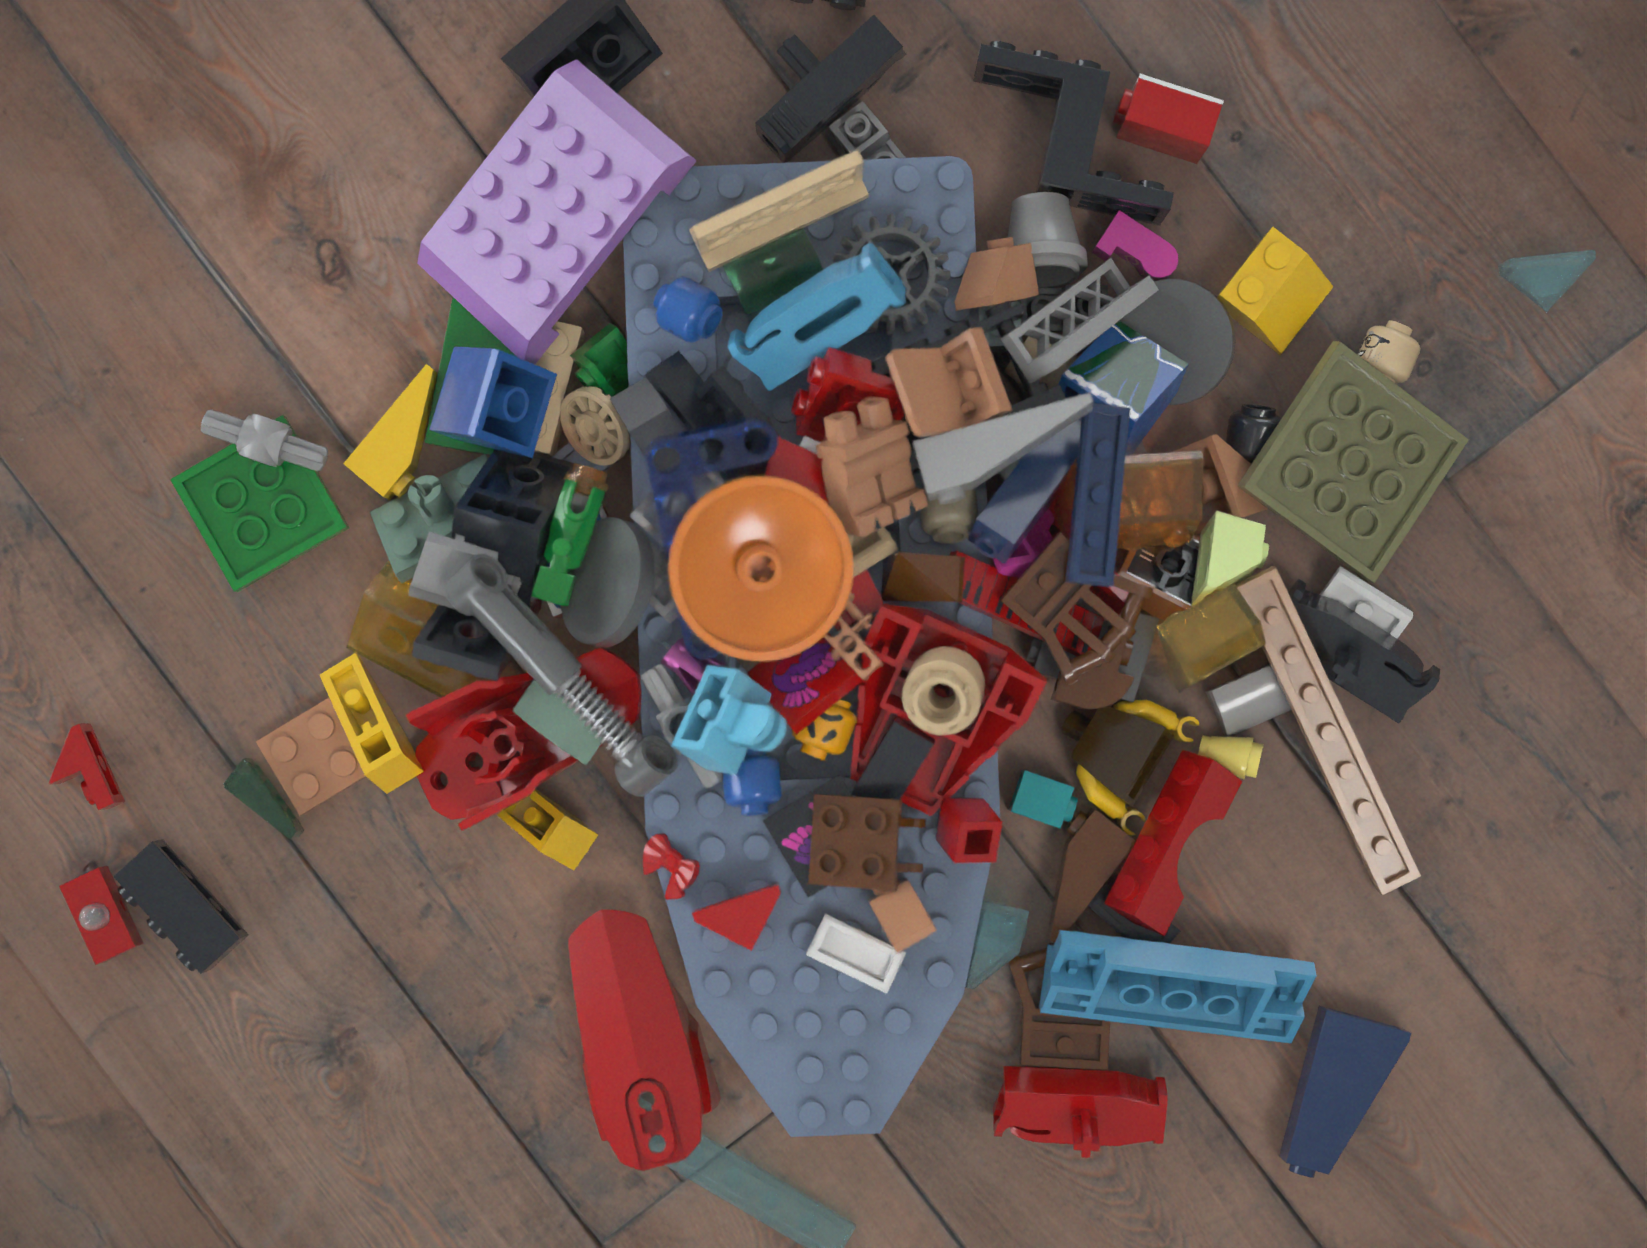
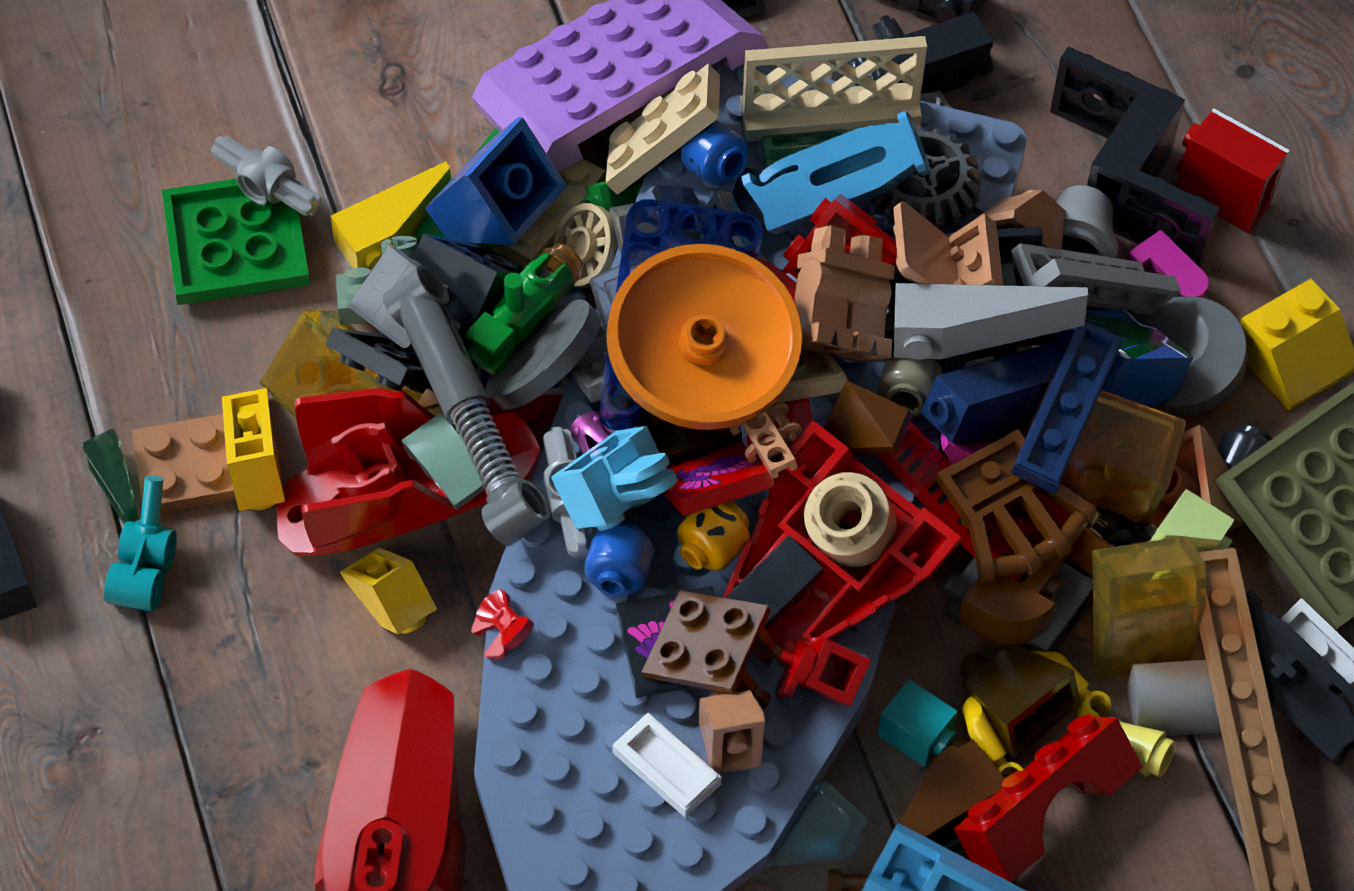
camera: 15 degrees right, 30 degrees down
(324, 862) = (144, 555): none -> teal beam
(630, 293) = (663, 127): none -> tan plate
(741, 916) = (558, 681): red slope -> none
(936, 836) = (797, 669): none -> red piece

